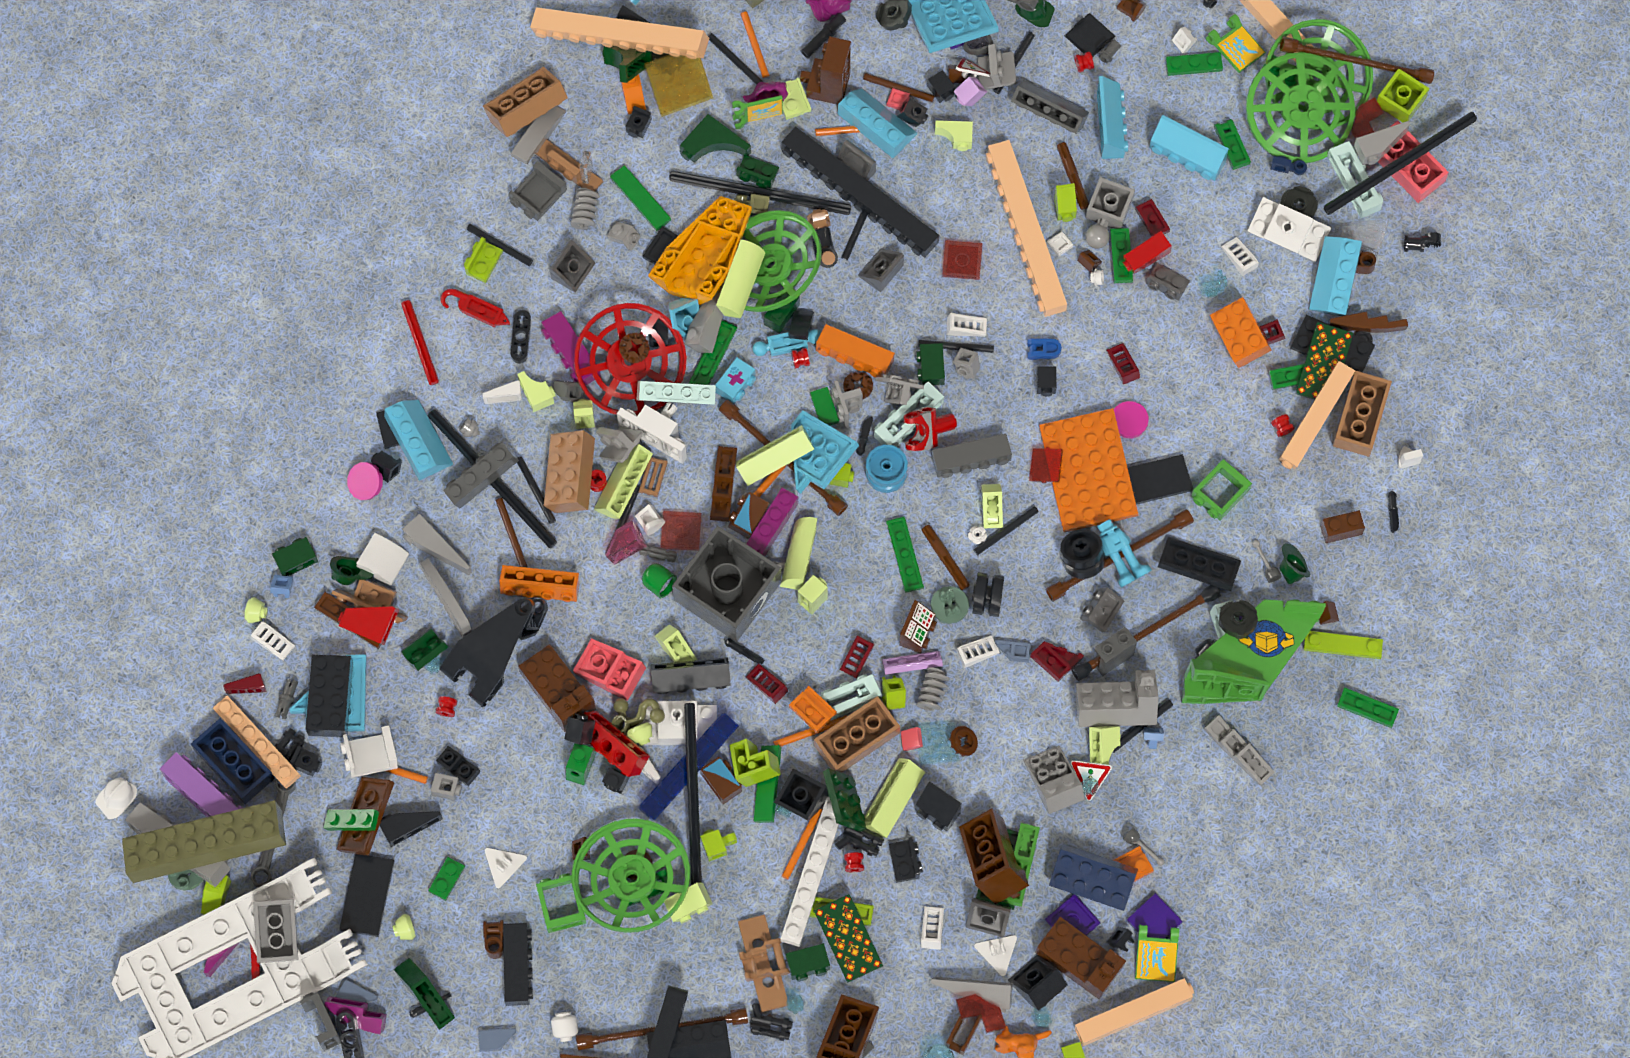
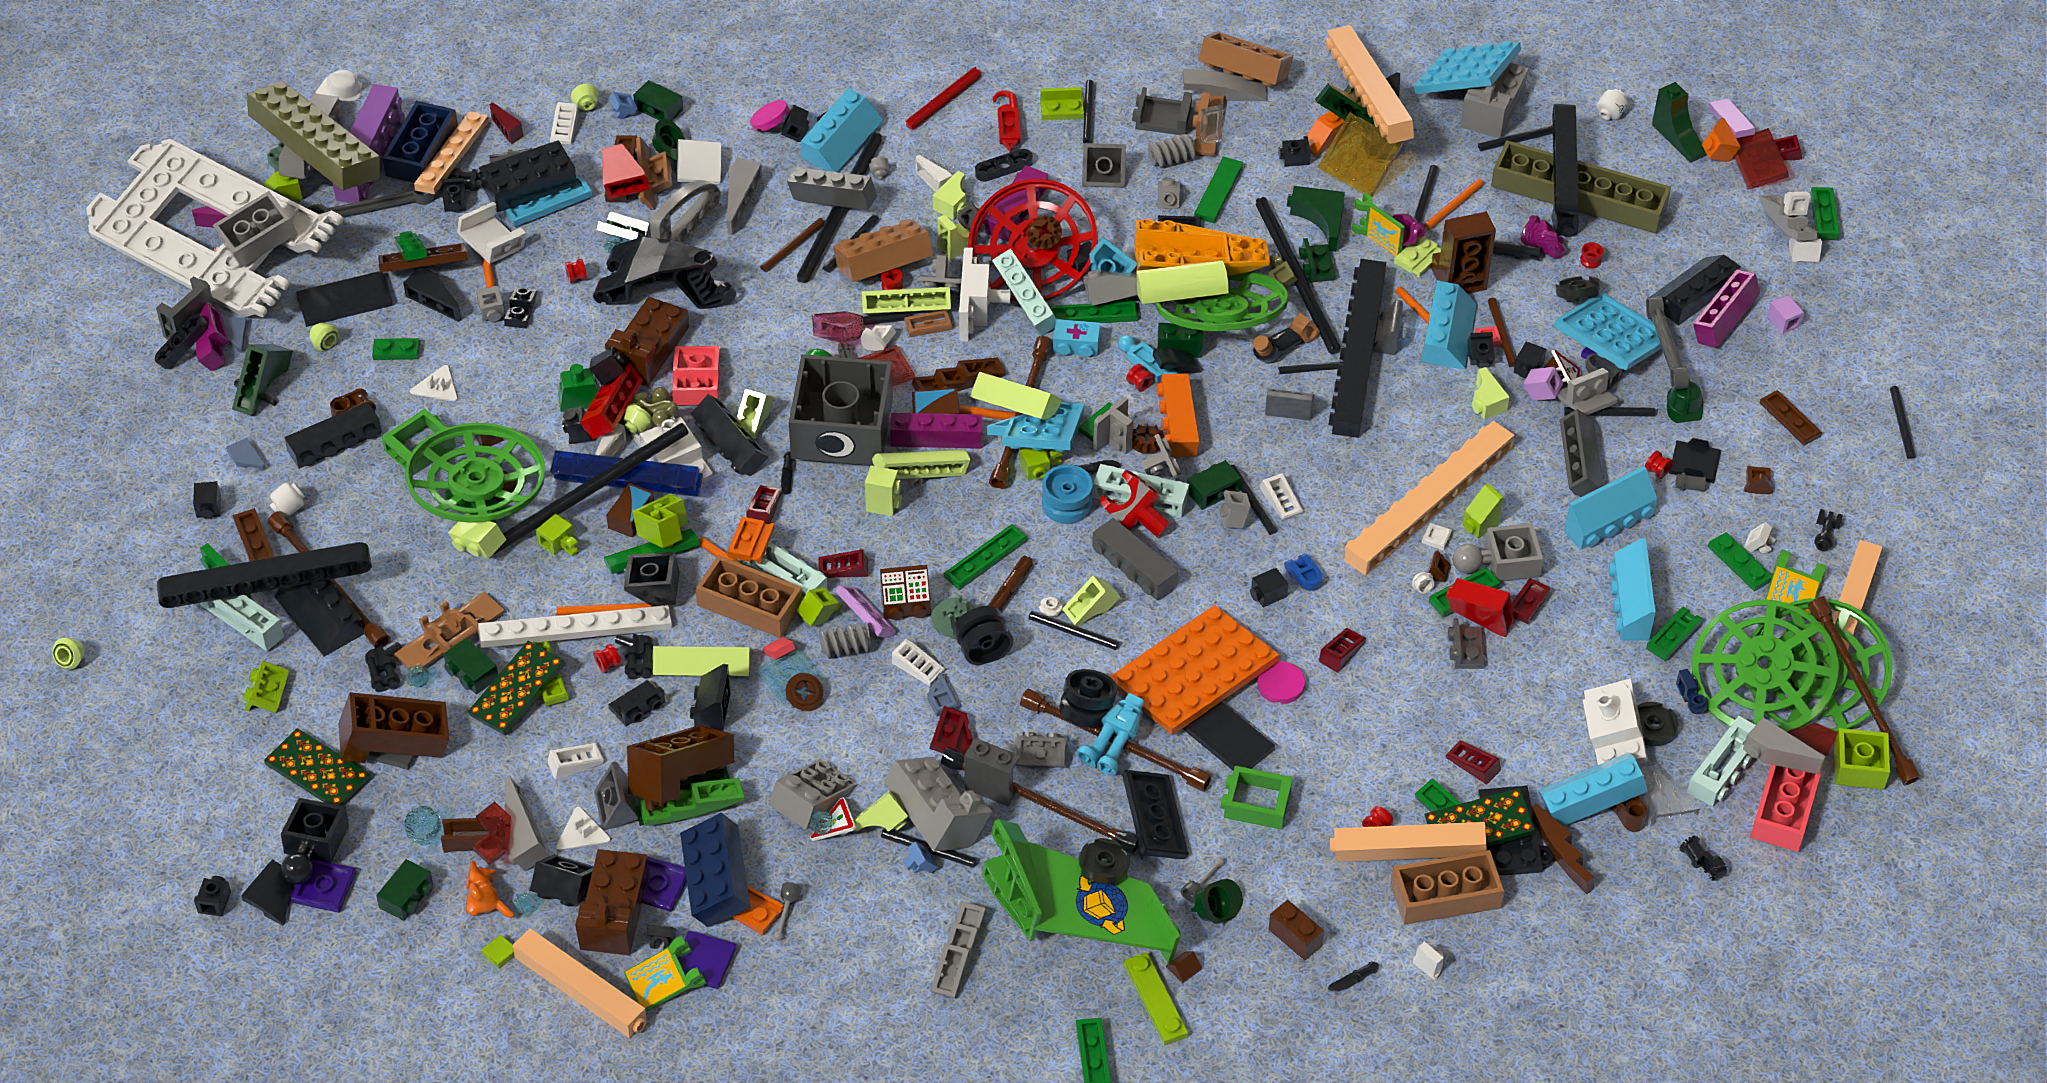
camera: 60 degrees right, 20 degrees down
(539, 583) = (749, 280): orange brick -> none
(844, 799) = (667, 611): dark green plate -> none
(962, 260) = (1352, 463): clear red tile -> none
(1046, 465) = (1171, 628): clear red piece -> none
(1072, 174) = (1530, 506): reddish brown axle -> none
(1214, 288) = (1491, 687): clear light blue bracket -> none
(1240, 332) = (1455, 730): orange brick -> none
(1243, 269) = (1542, 710): white slope -> none
(1400, 163) = (1775, 781): black axle -> none

